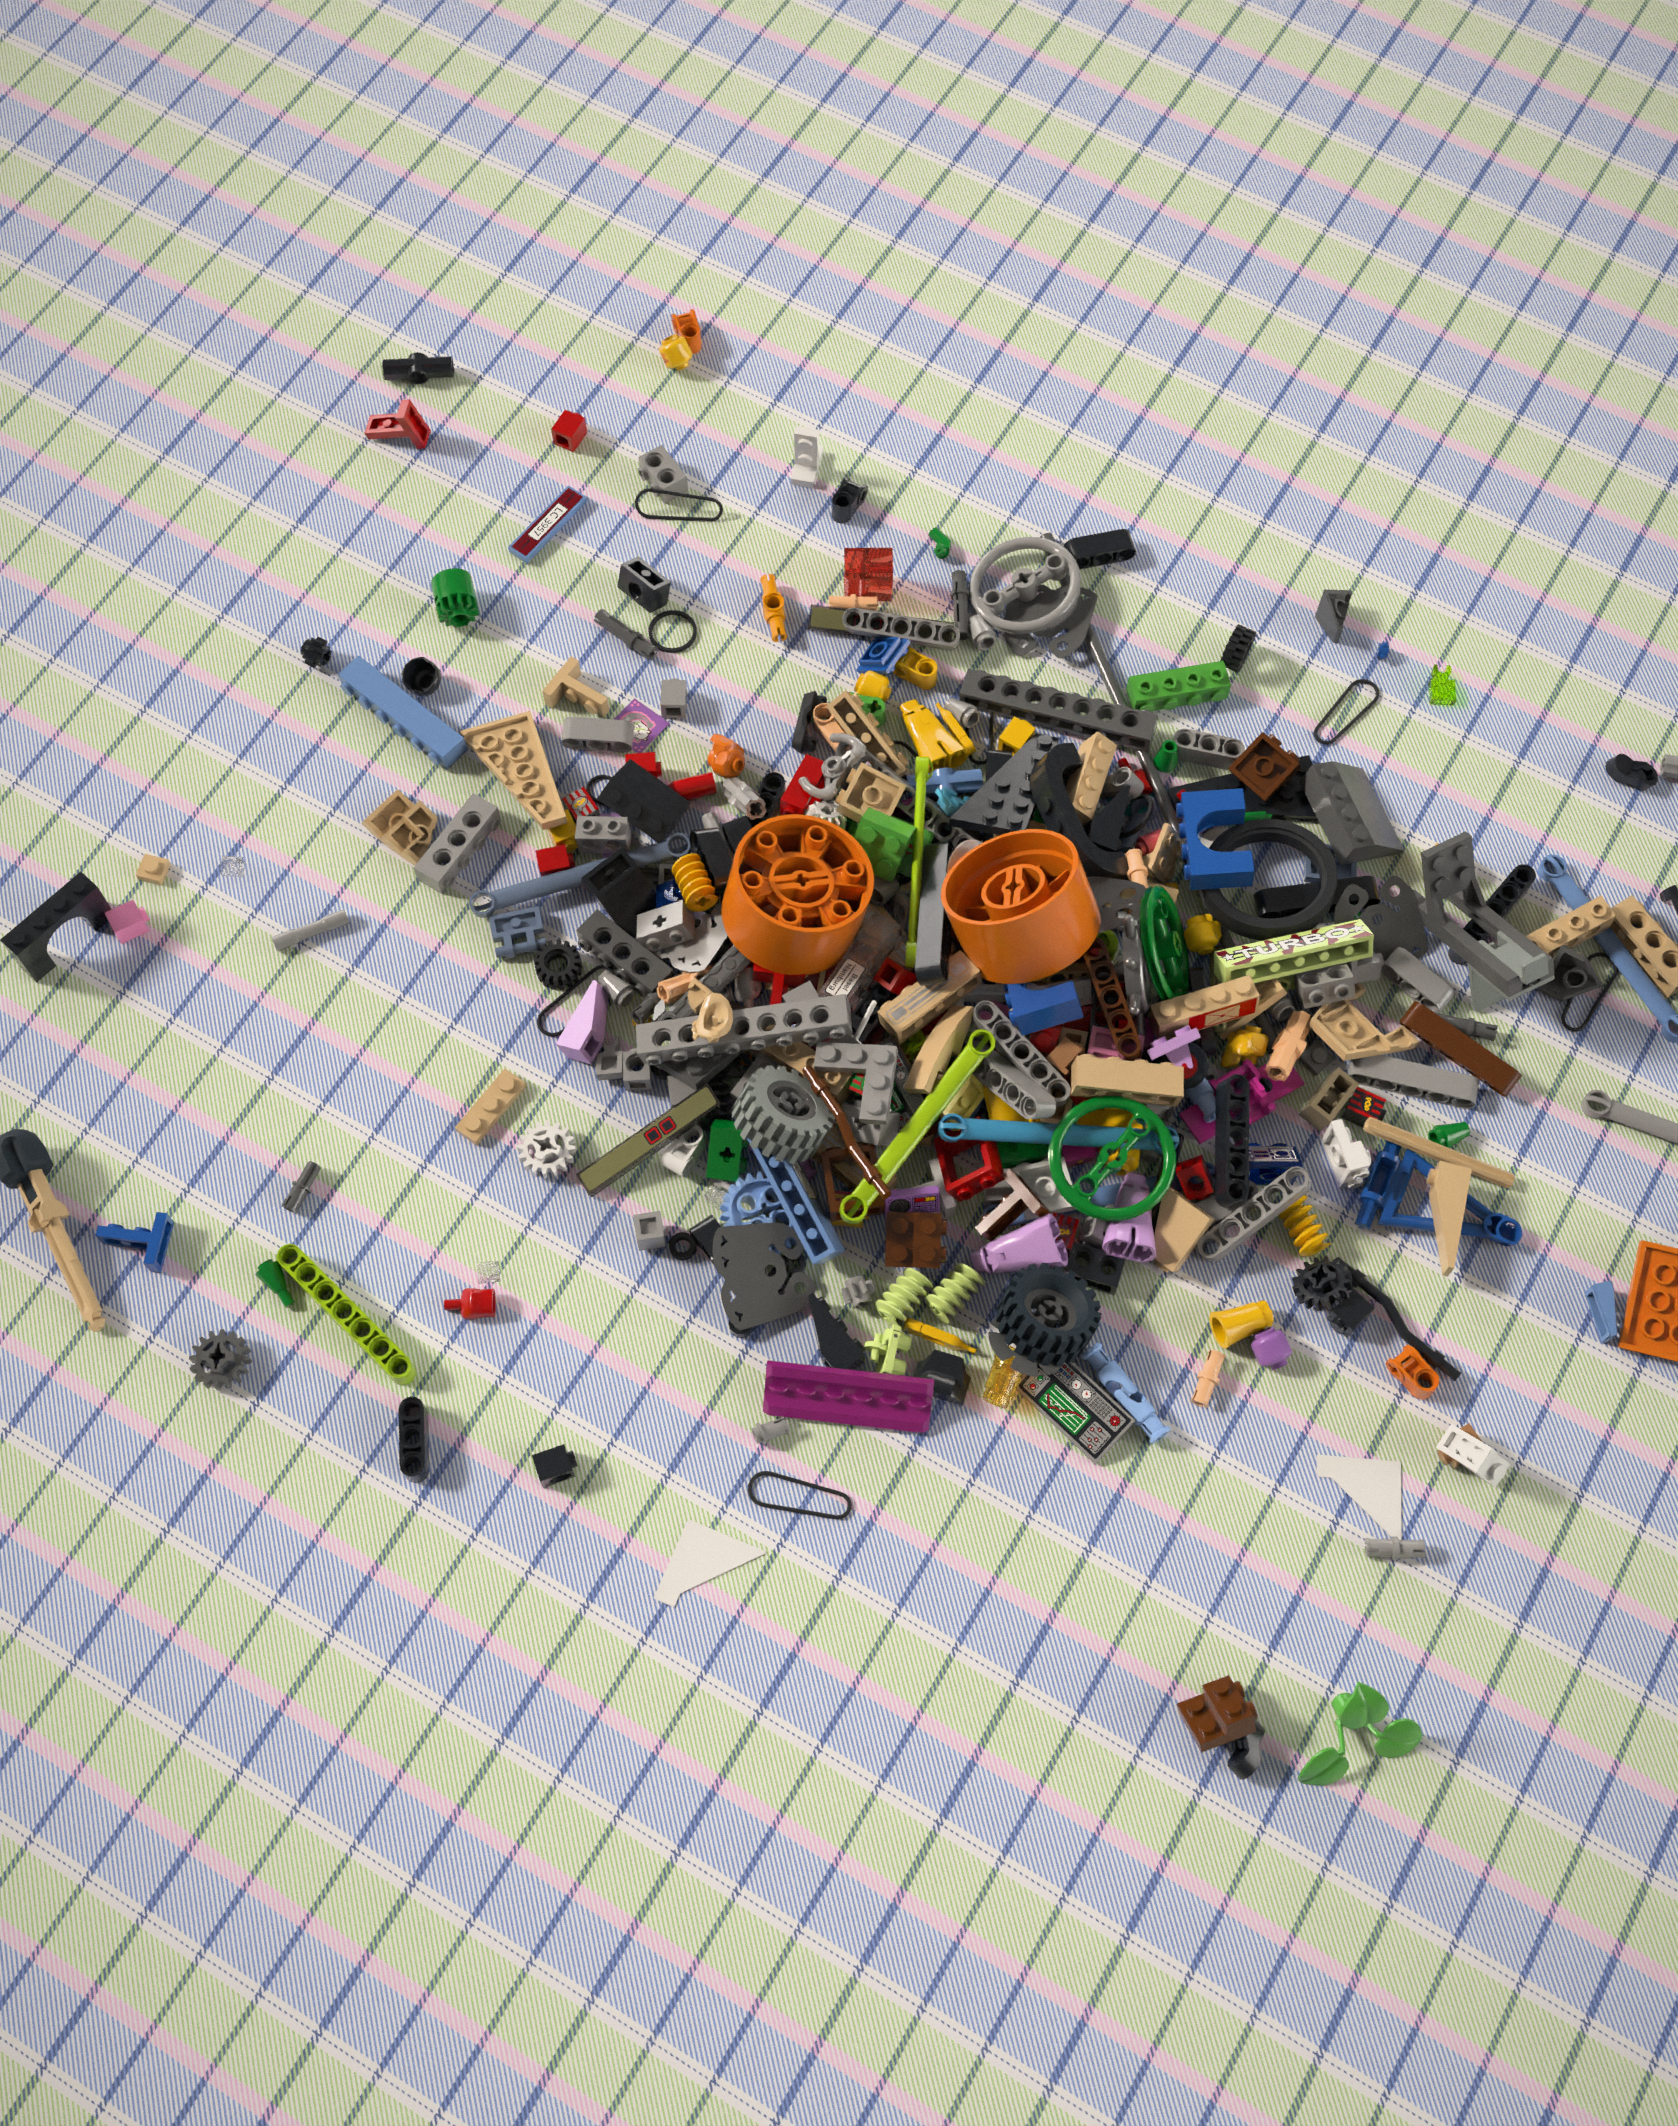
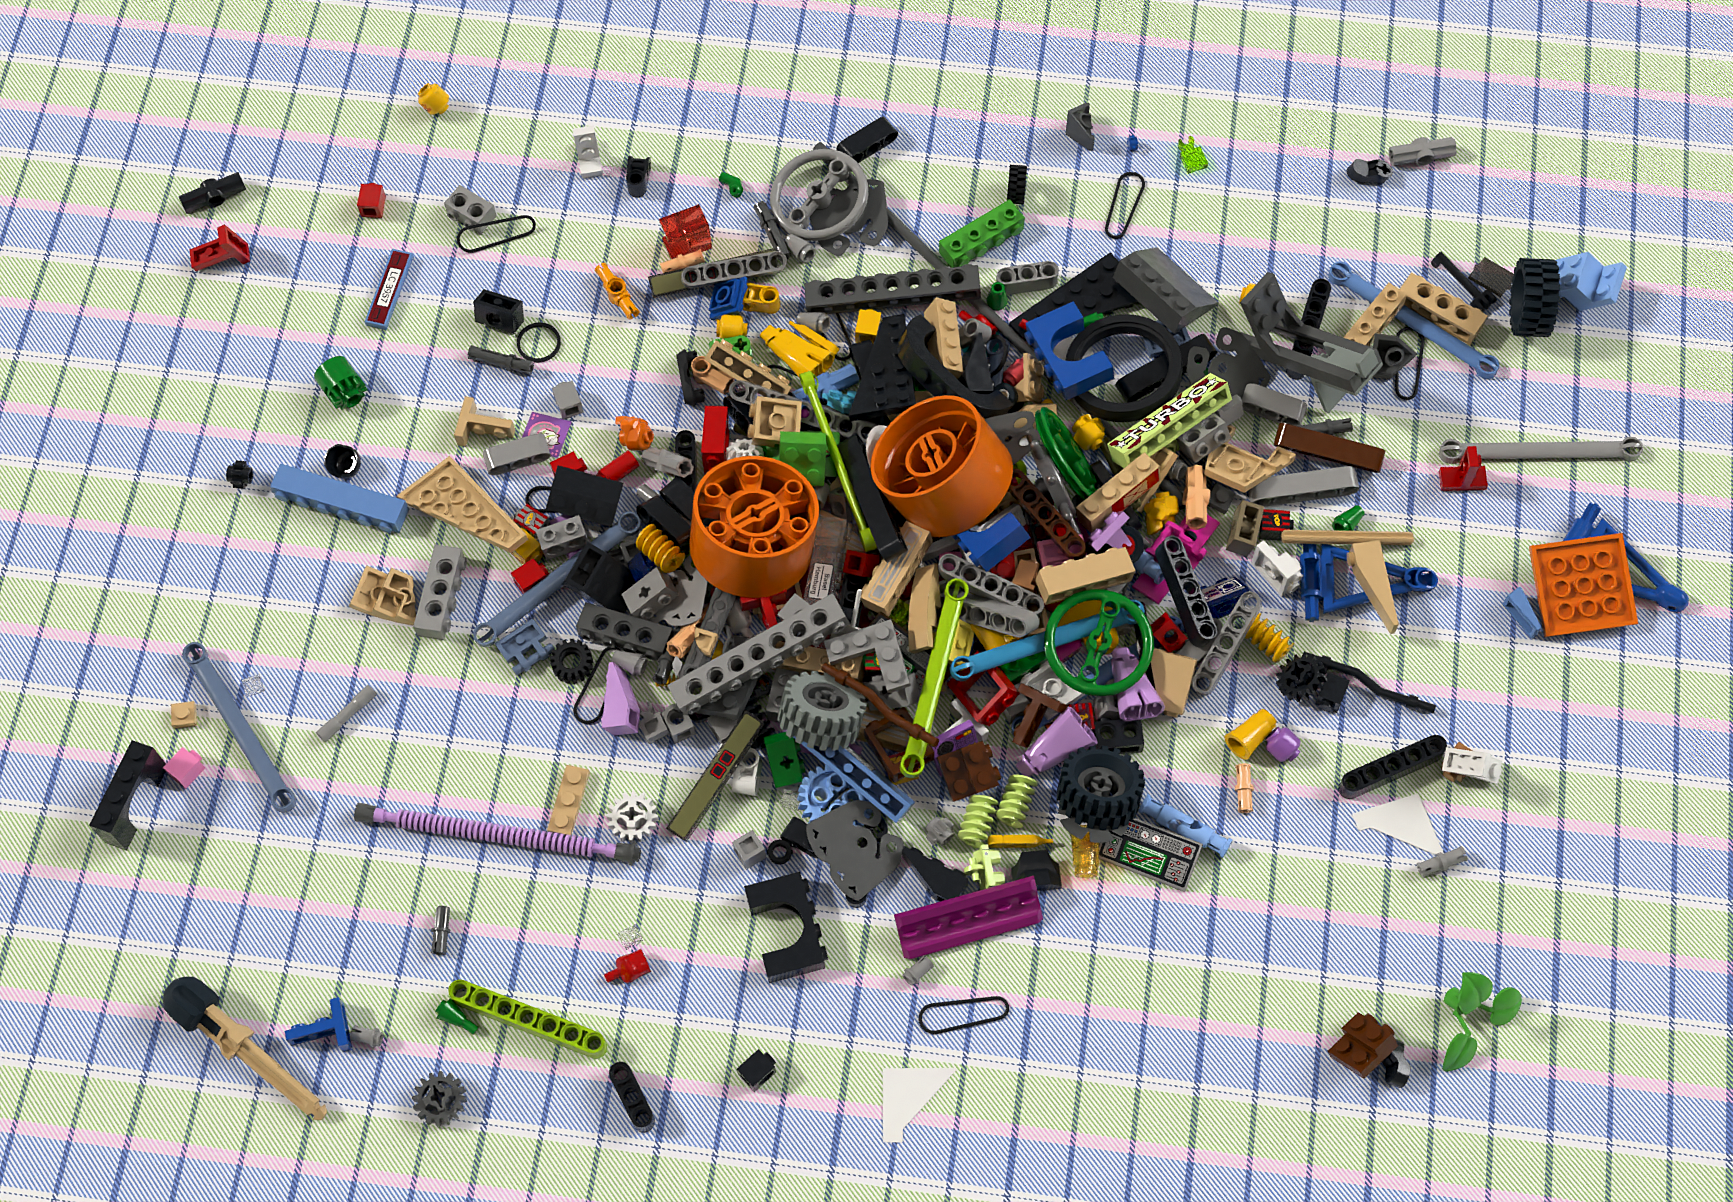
camera: 20 degrees left, 0 degrees up
(184, 1269) = (367, 1036): none -> light grey pin
(199, 903) = (239, 727): none -> sand blue piece
(406, 1112) = (621, 851): none -> lavender hose
(661, 1363) = (790, 894): none -> black arch
(687, 326) = (432, 73): orange piece -> none
(714, 1018) = (732, 655): tan hat -> none
(836, 768) = (737, 408): light grey piece -> none
(1137, 871) = (1017, 401): light nougat pin -> none
(1265, 766) = (1081, 275): reddish brown plate -> none
(1393, 1413) = (1385, 774): none -> black beam
(1411, 1371) = (1398, 718): orange piece -> none
(1601, 1137) = (1467, 475): none -> red bracket

